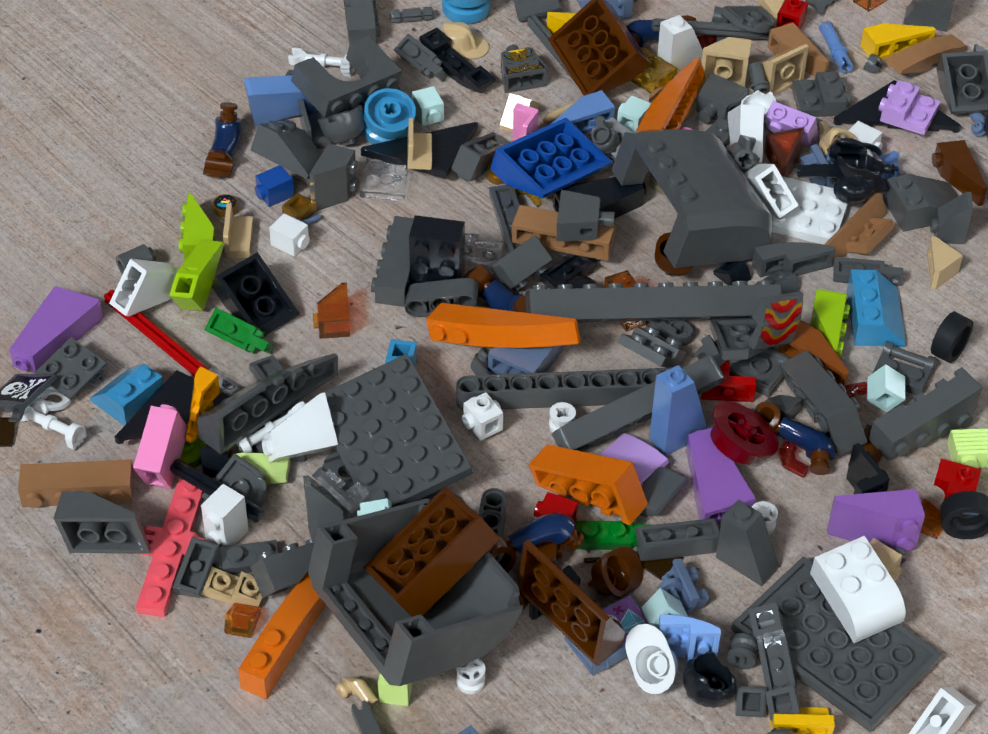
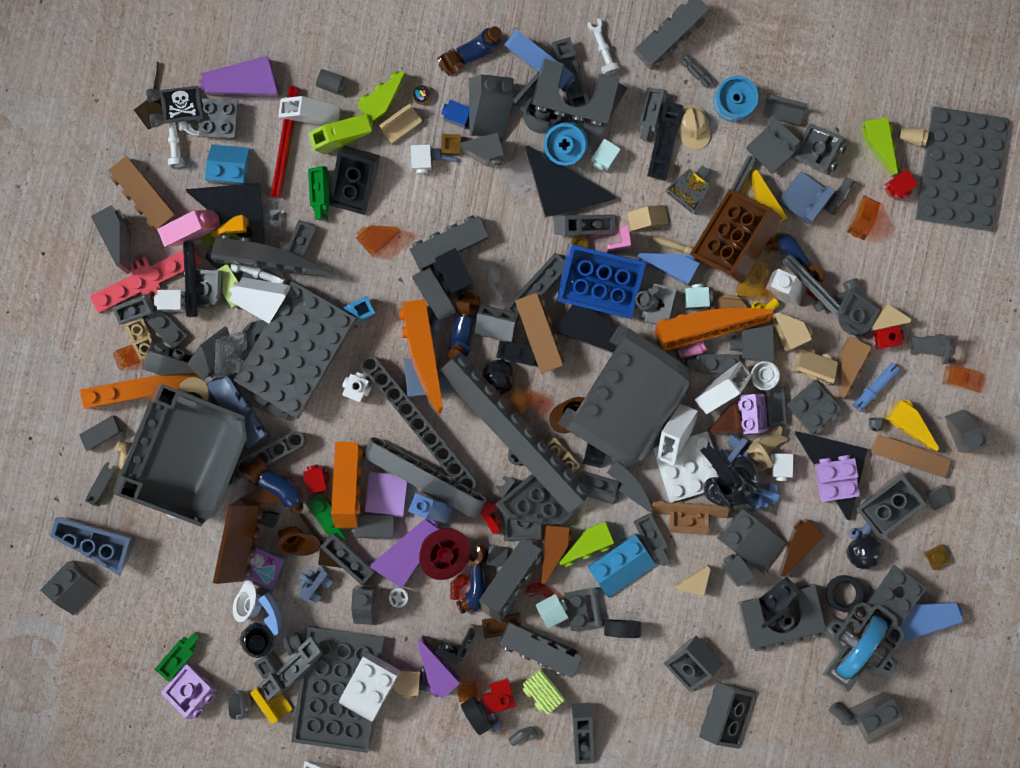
camera: 55 degrees right, 40 degrees up
(308, 700) = (100, 433): none -> dark grey slope
(373, 506) = (224, 389): light aqua slope -> none
(418, 149) = (550, 185): tan panel -> none
(431, 553) = (207, 446): reddish brown slope -> none
(480, 362) = (399, 354): dark grey arm -> none
(560, 415) = (391, 433): white wheel -> none
(580, 217) = (544, 344): dark grey torso -> none
(653, 347) = (480, 453): dark grey plate -> none
(662, 603) = (283, 588): light aqua brick -> none
(742, 152) = (693, 404): dark grey piece -> none
(757, 77) = (787, 361): dark grey pin -> none
(776, 320) = (537, 524): slope -> none

